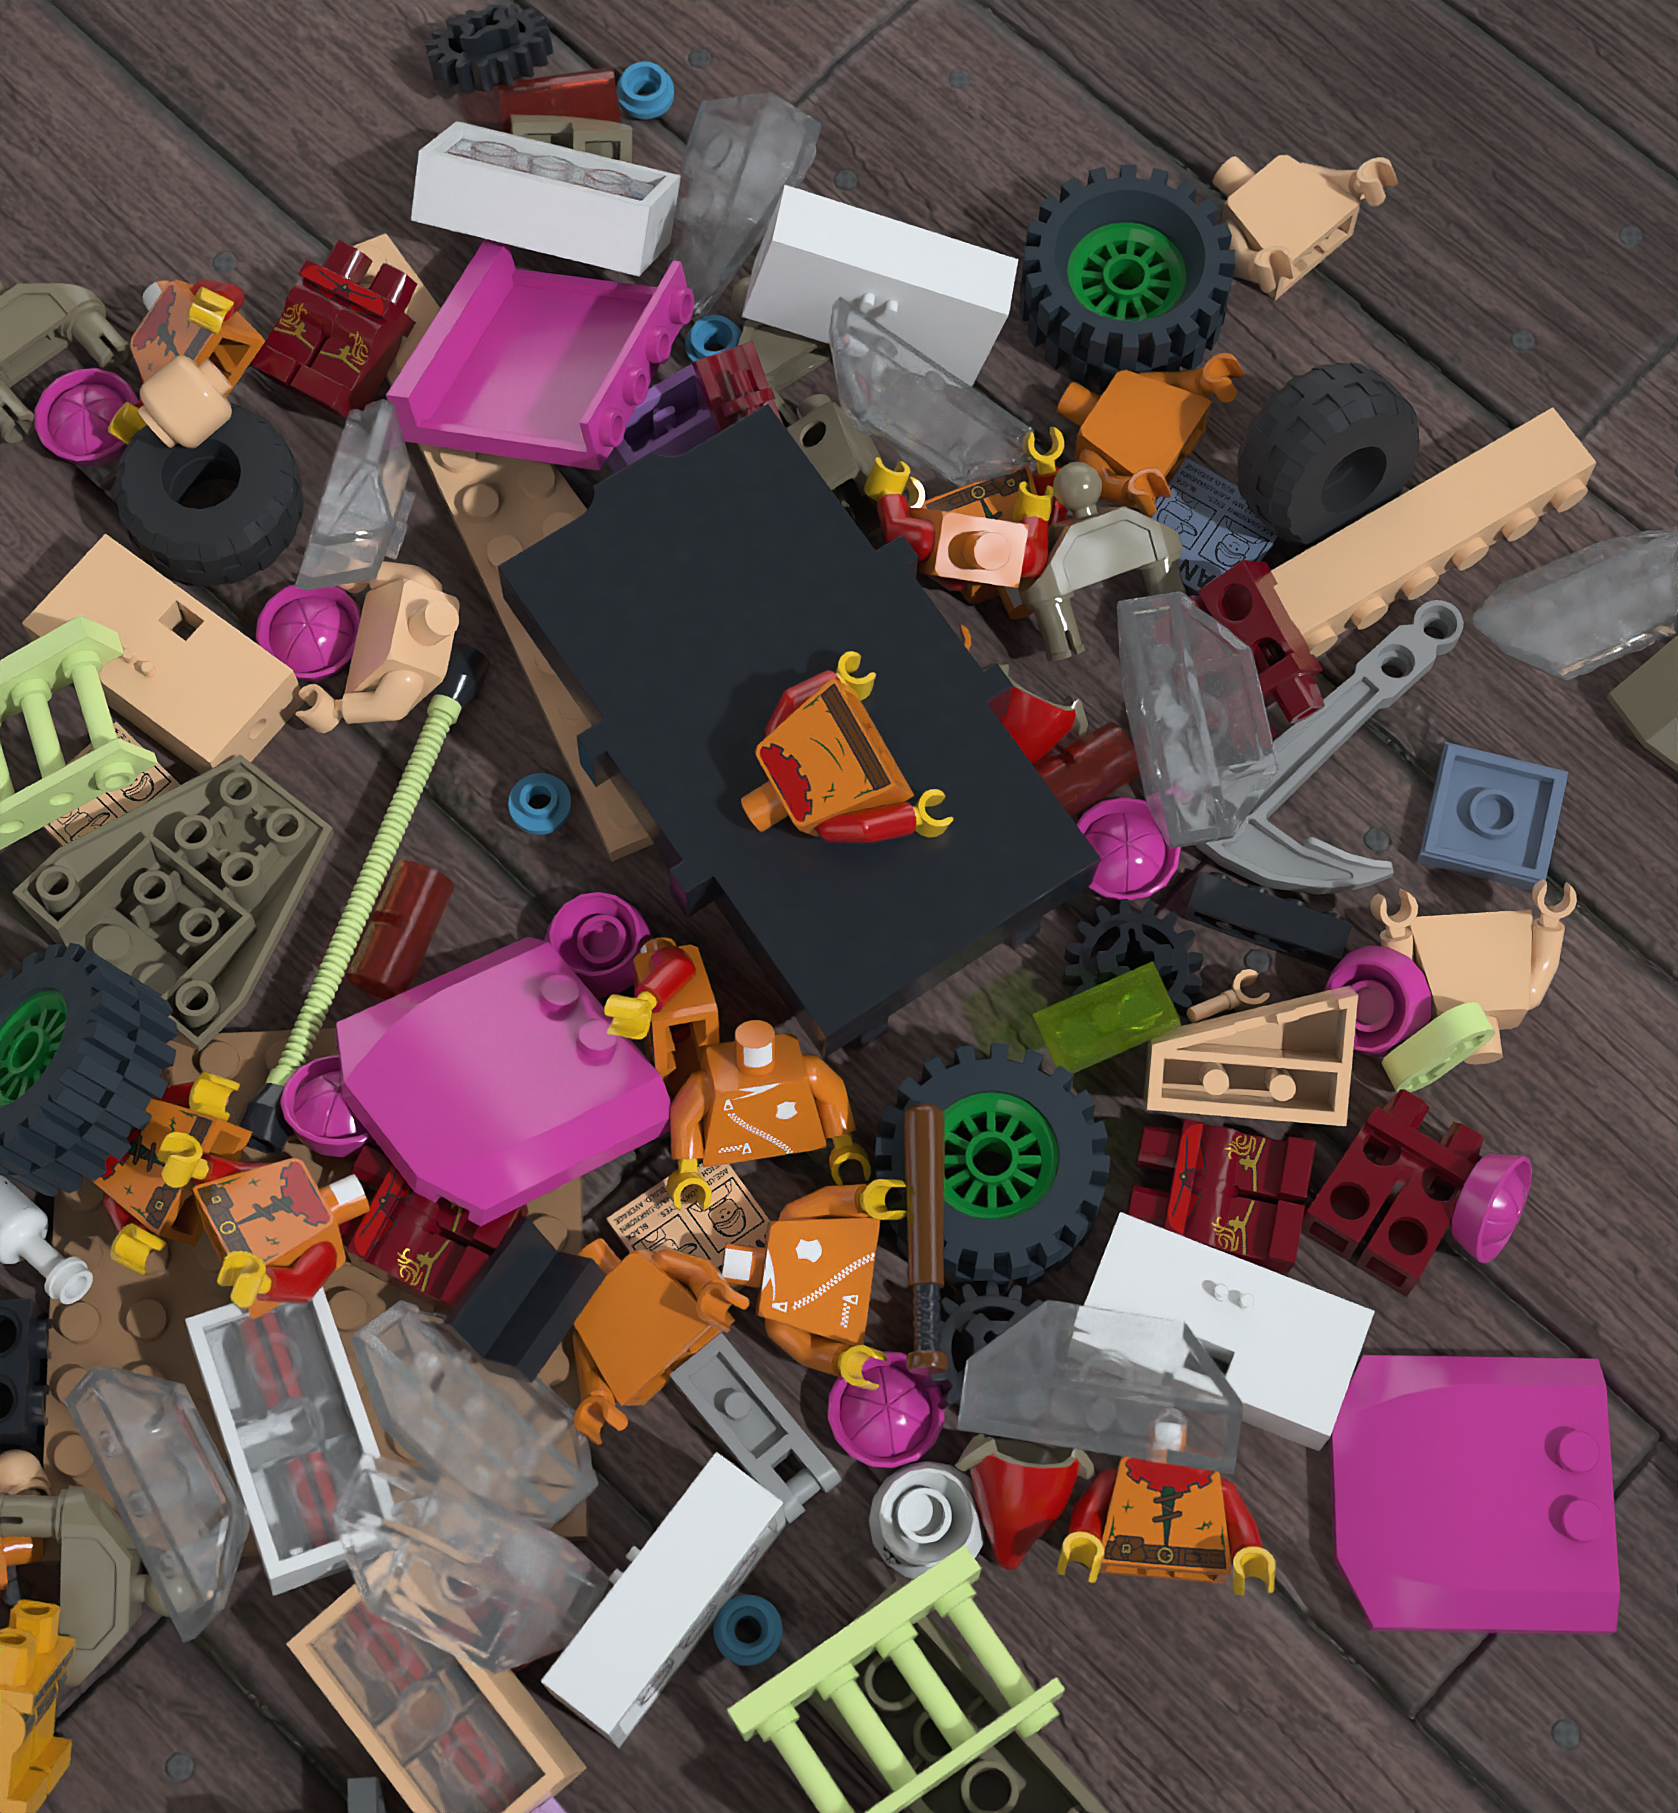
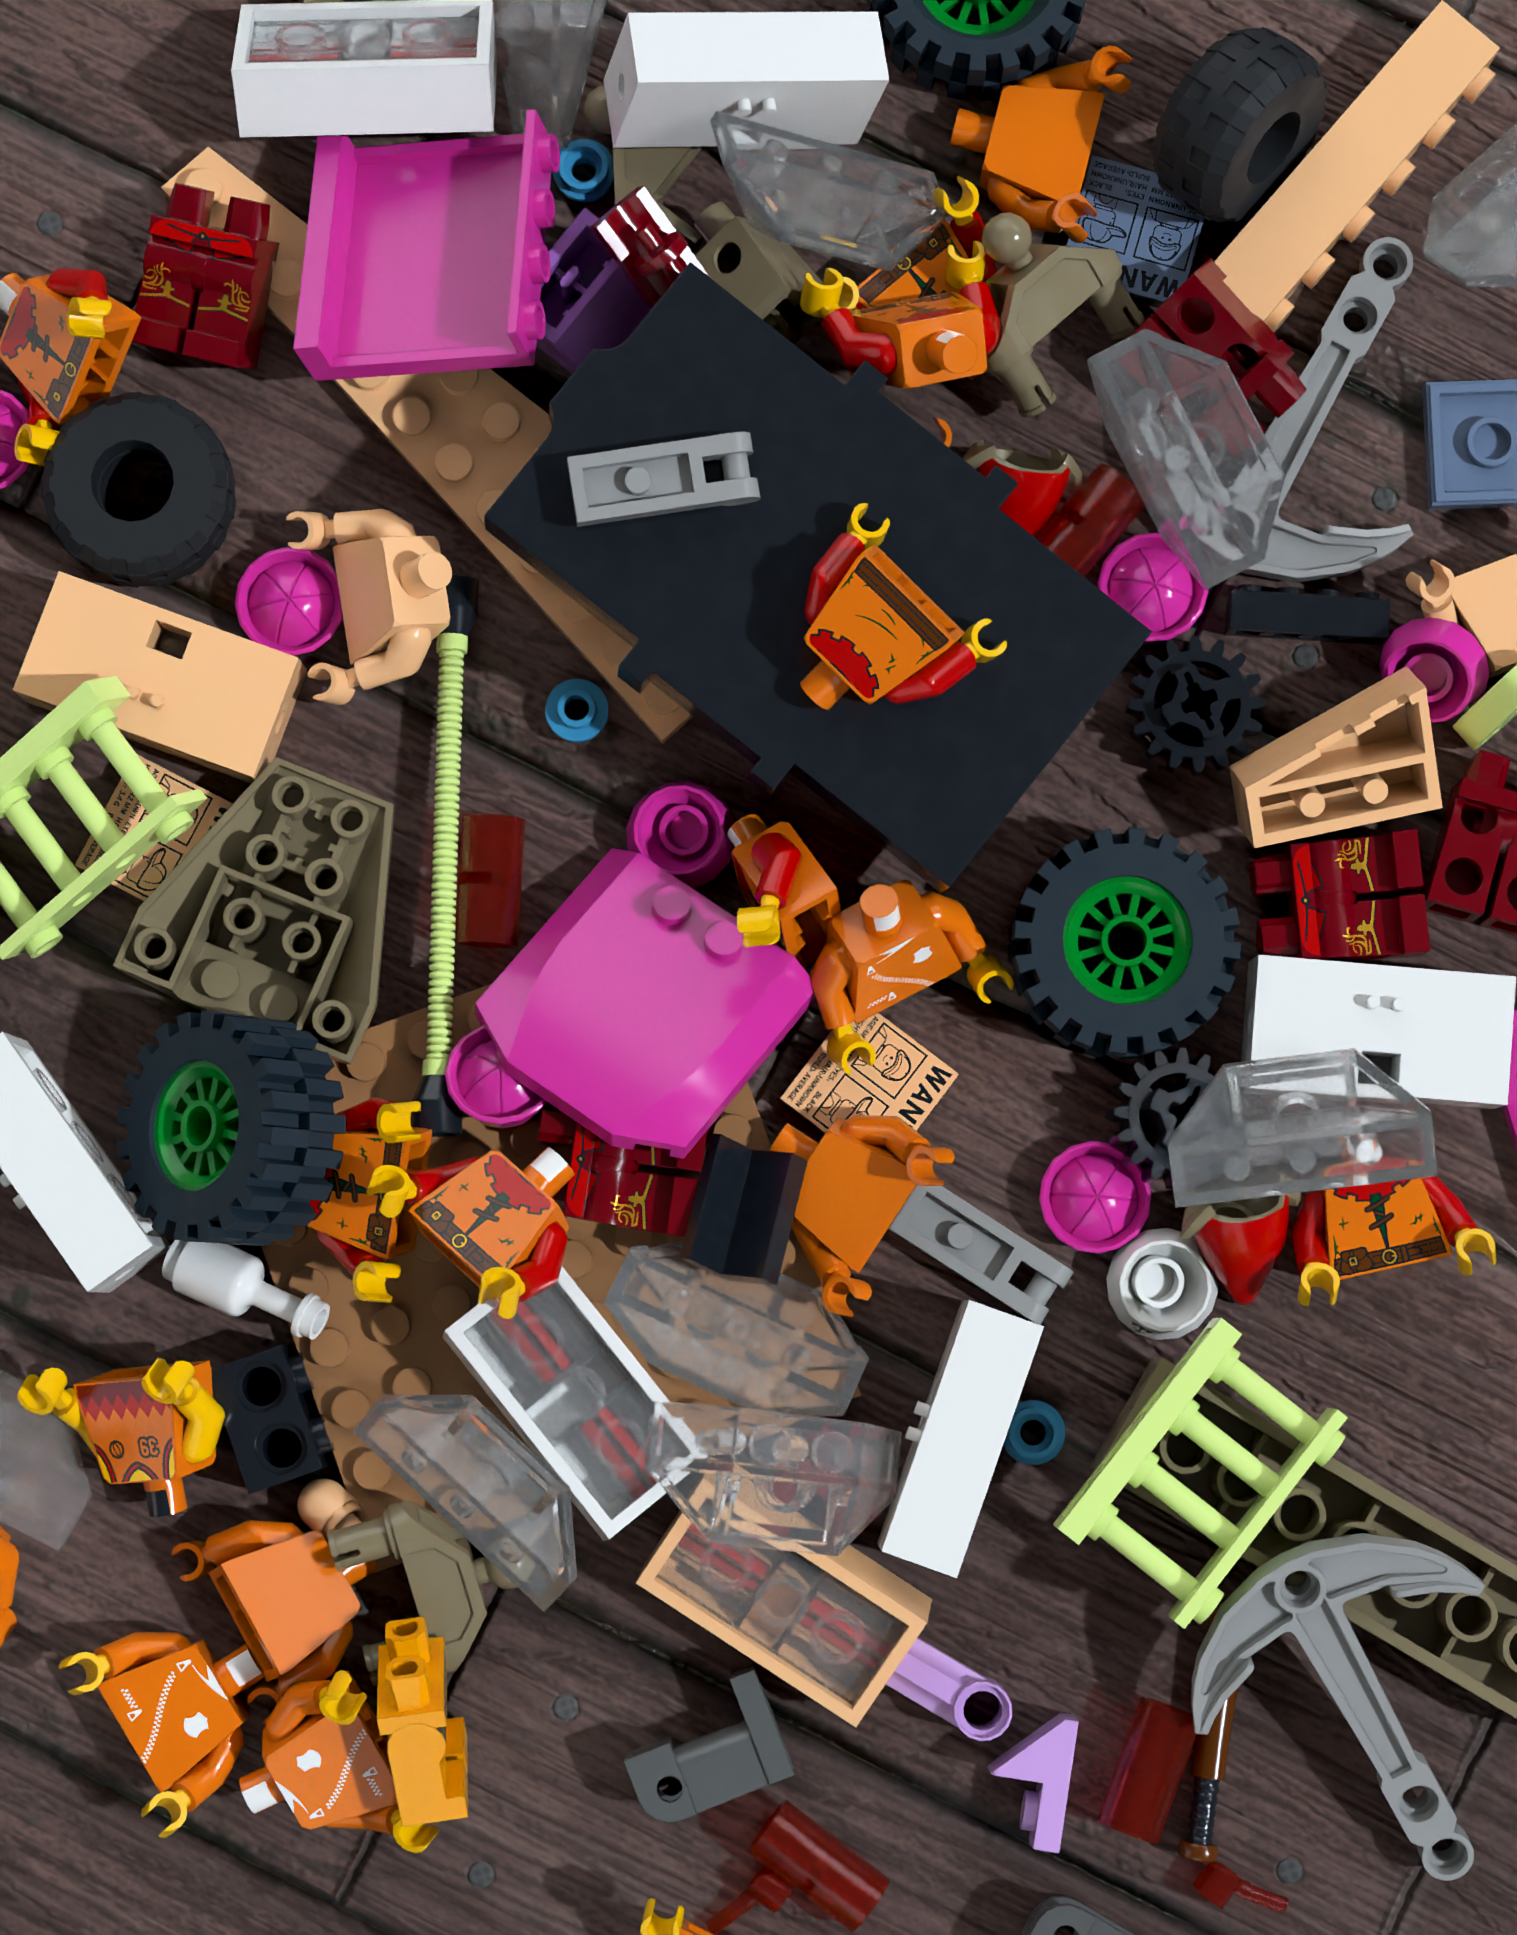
camera: 20 degrees left, 15 degrees up
(185, 401) = (94, 416): light nougat head -> none
(361, 503) = (298, 462): clear wedge -> none
(673, 576) = (661, 478): none -> light grey plate
(818, 1276) = (999, 1097): orange torso -> none
(925, 1229) = (1086, 1018): reddish brown piece -> none
(1107, 1019) = (1192, 772): clear neon green plate -> none
(1229, 999) = (1292, 709): light nougat hand -> none

